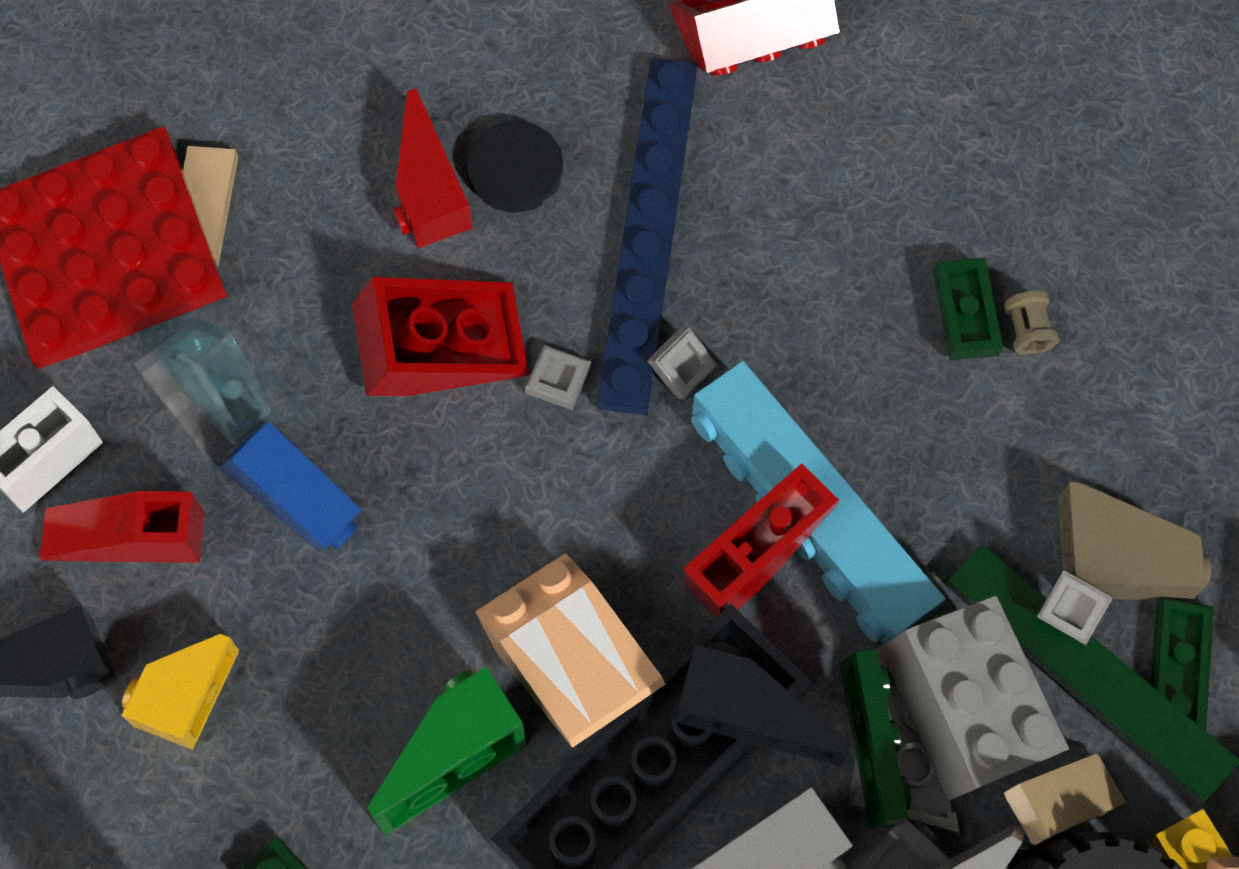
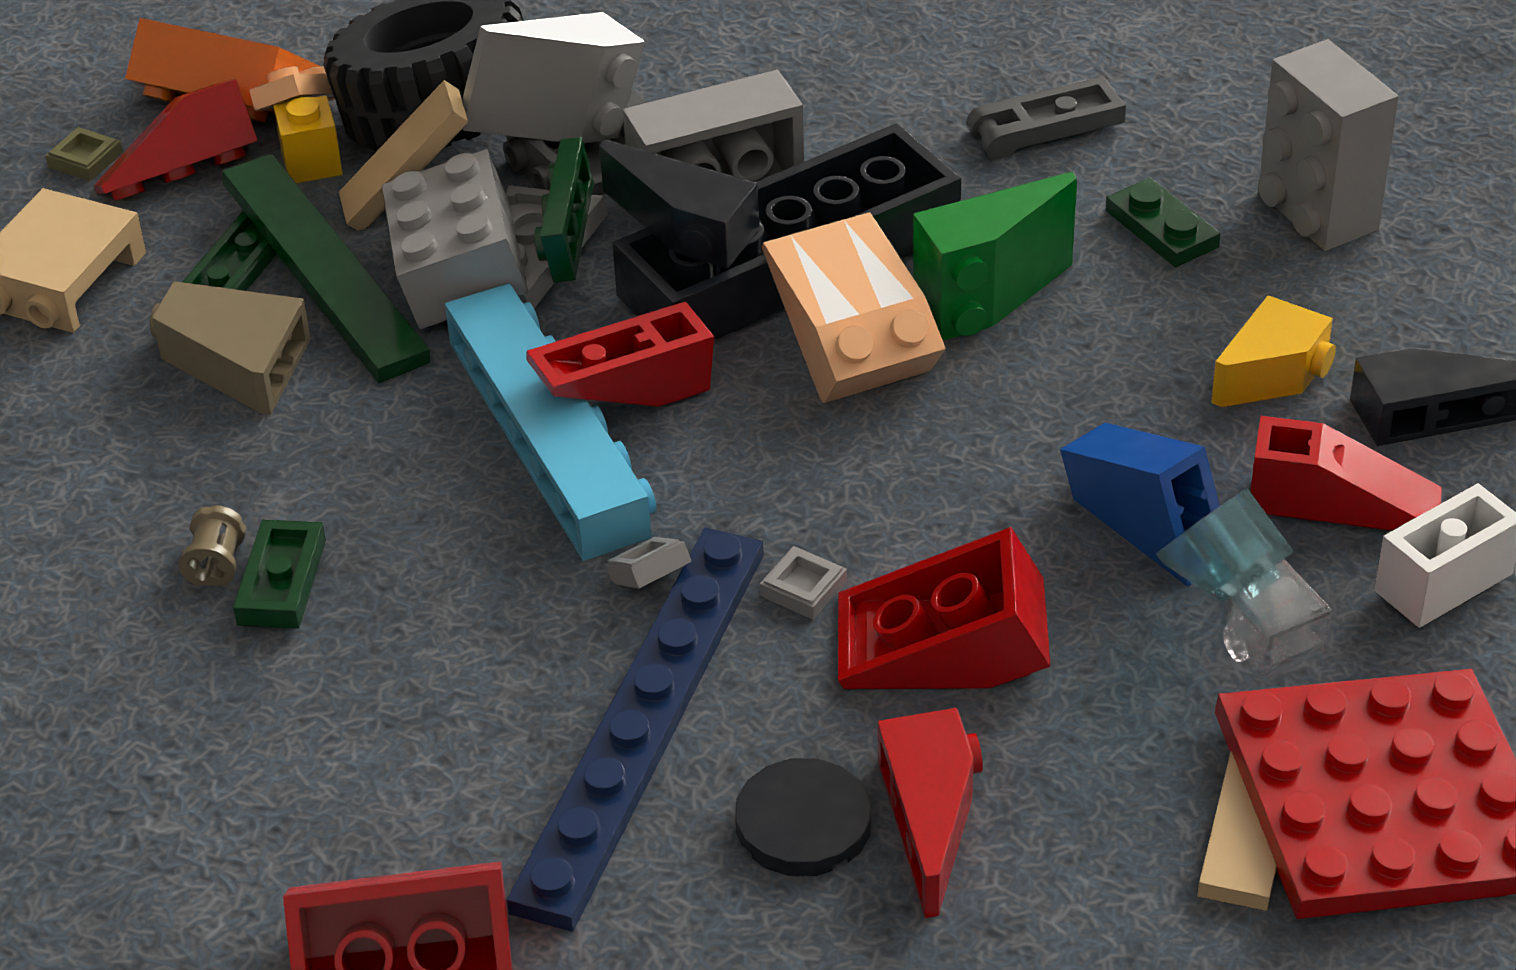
camera: 165 degrees left, 25 degrees down
(1075, 606) = (315, 282): light grey tile -> none

